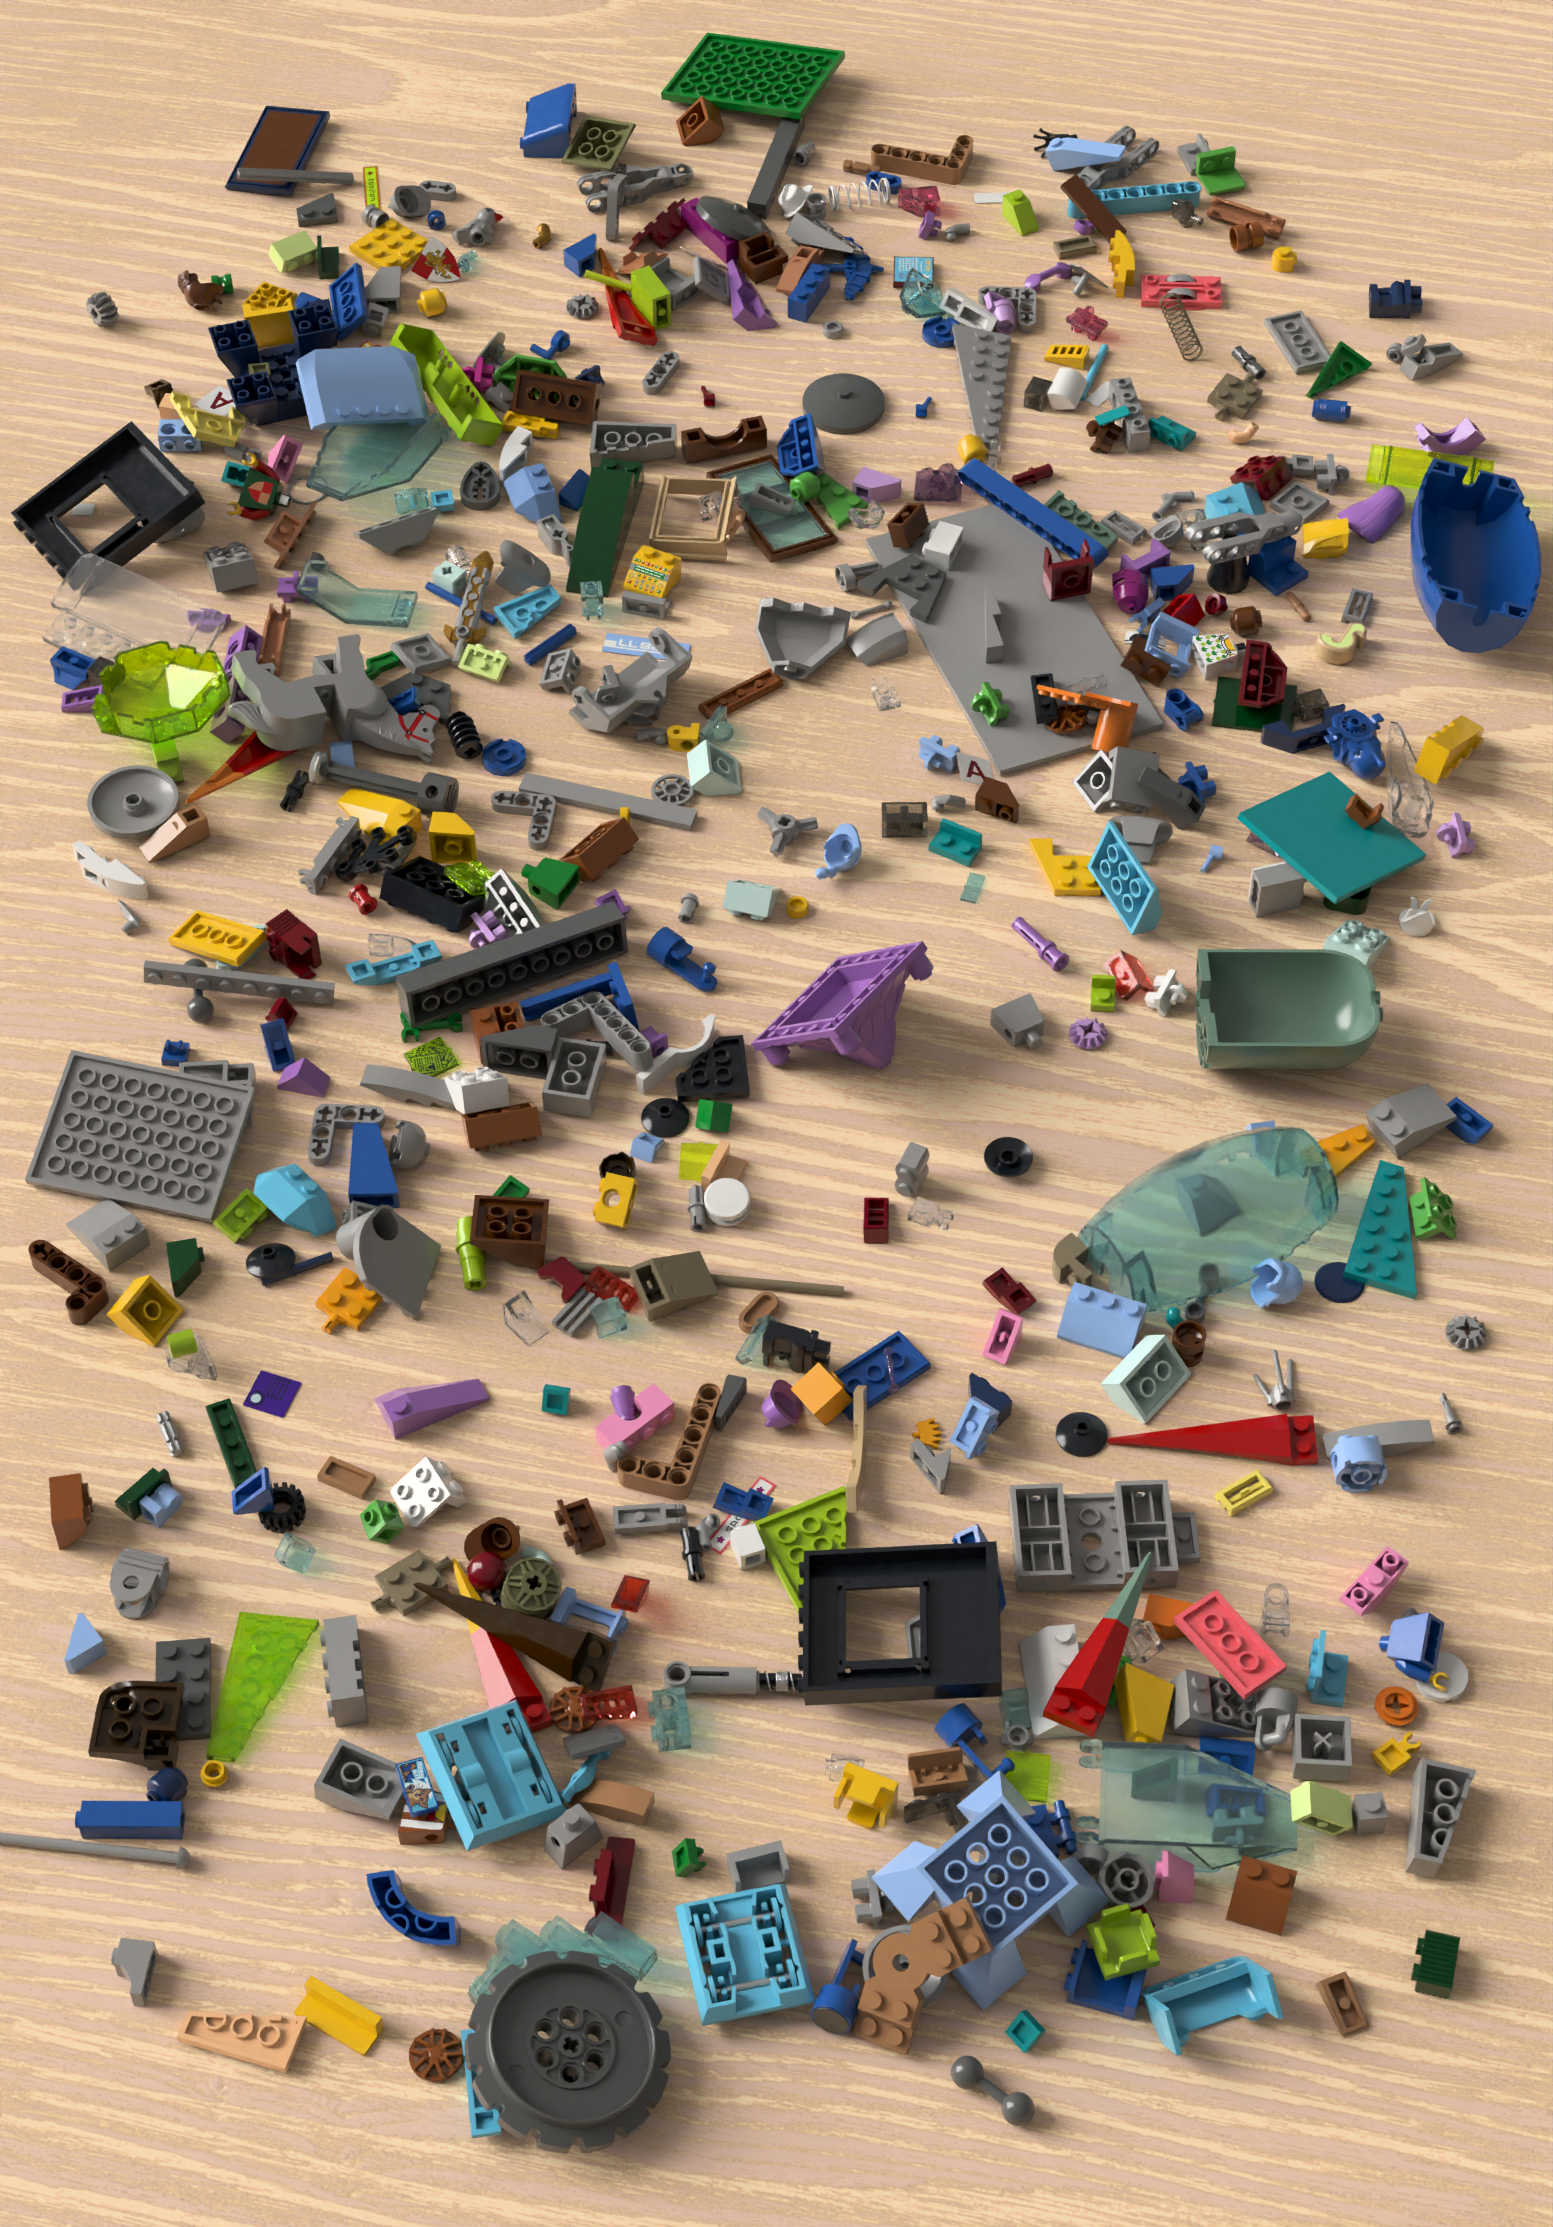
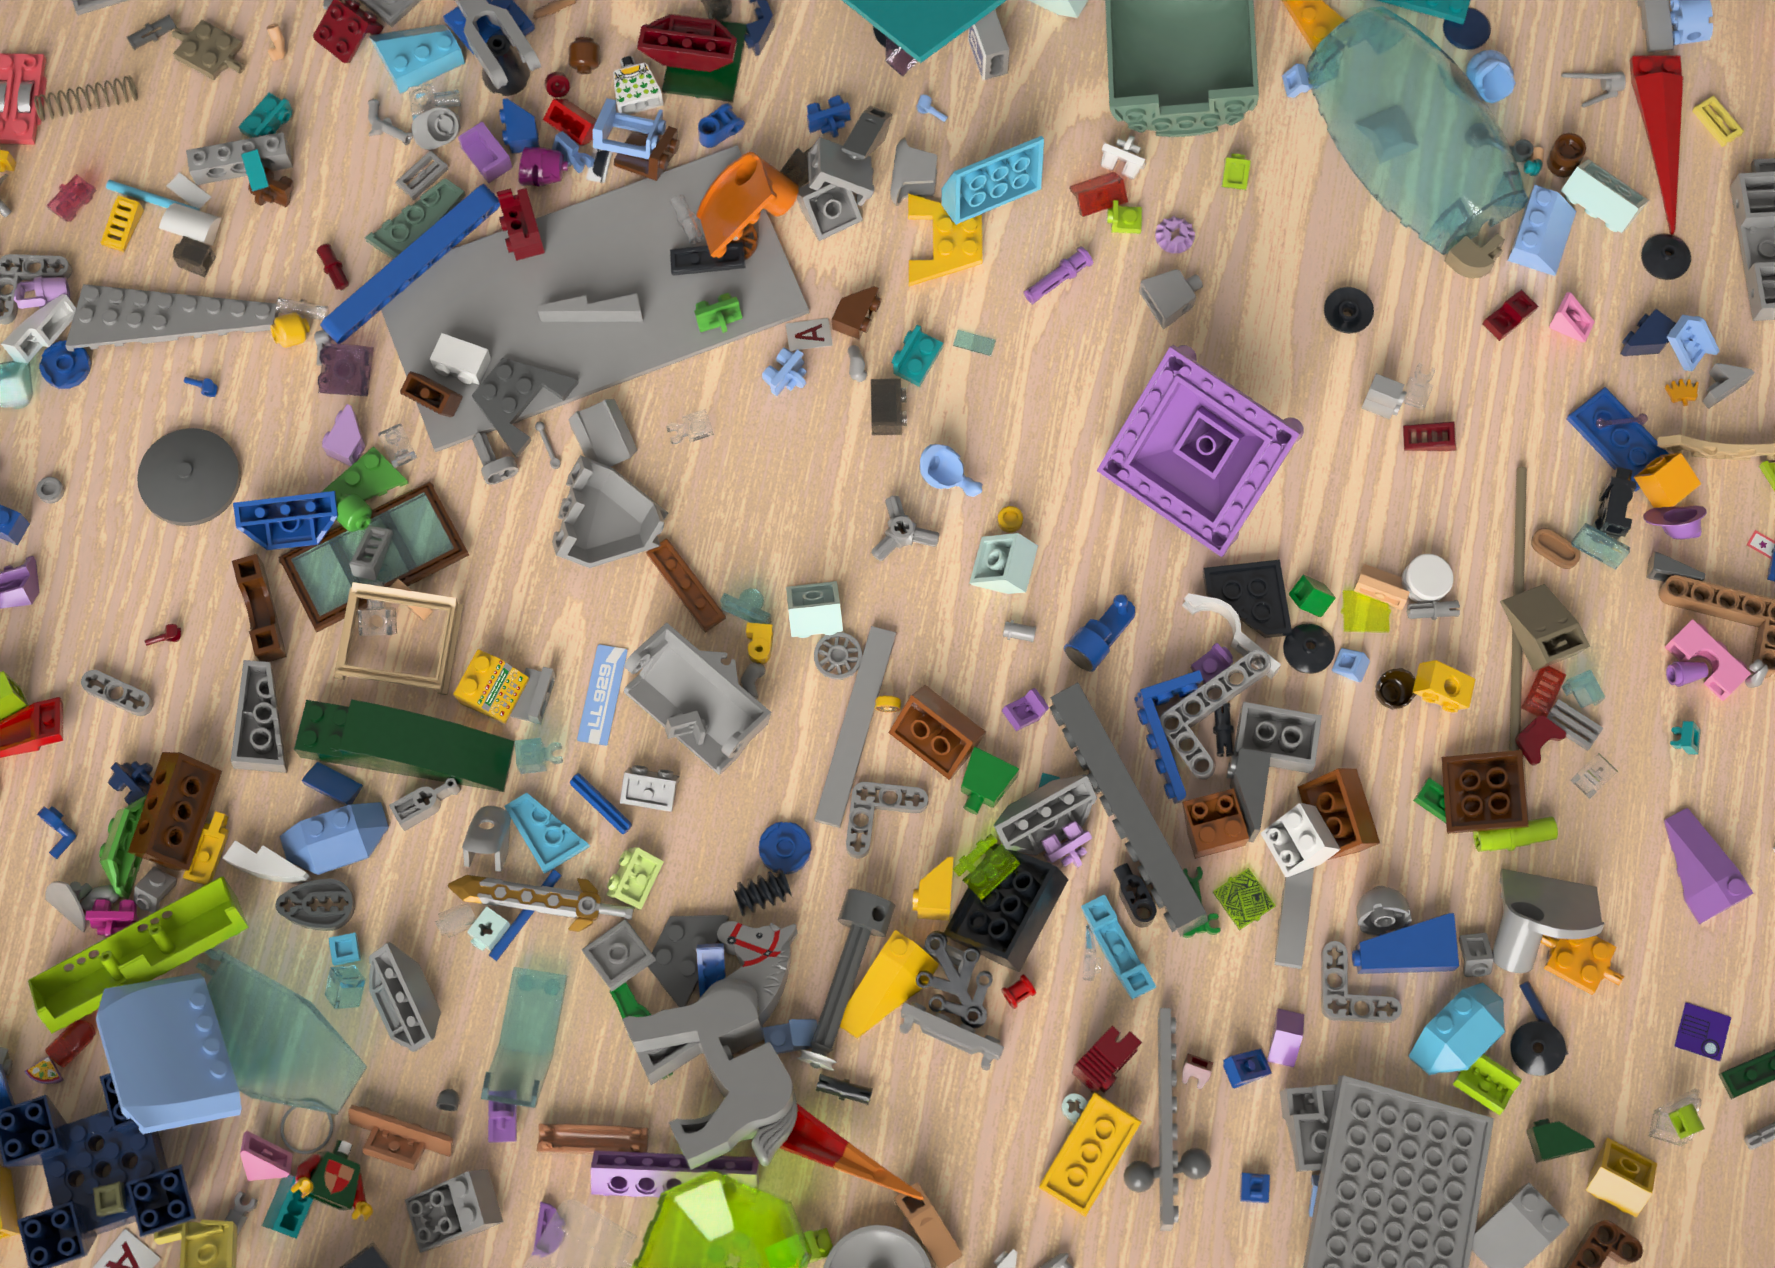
camera: 90 degrees left, 20 degrees up
(1156, 1077) = (1236, 172): none -> lime bracket

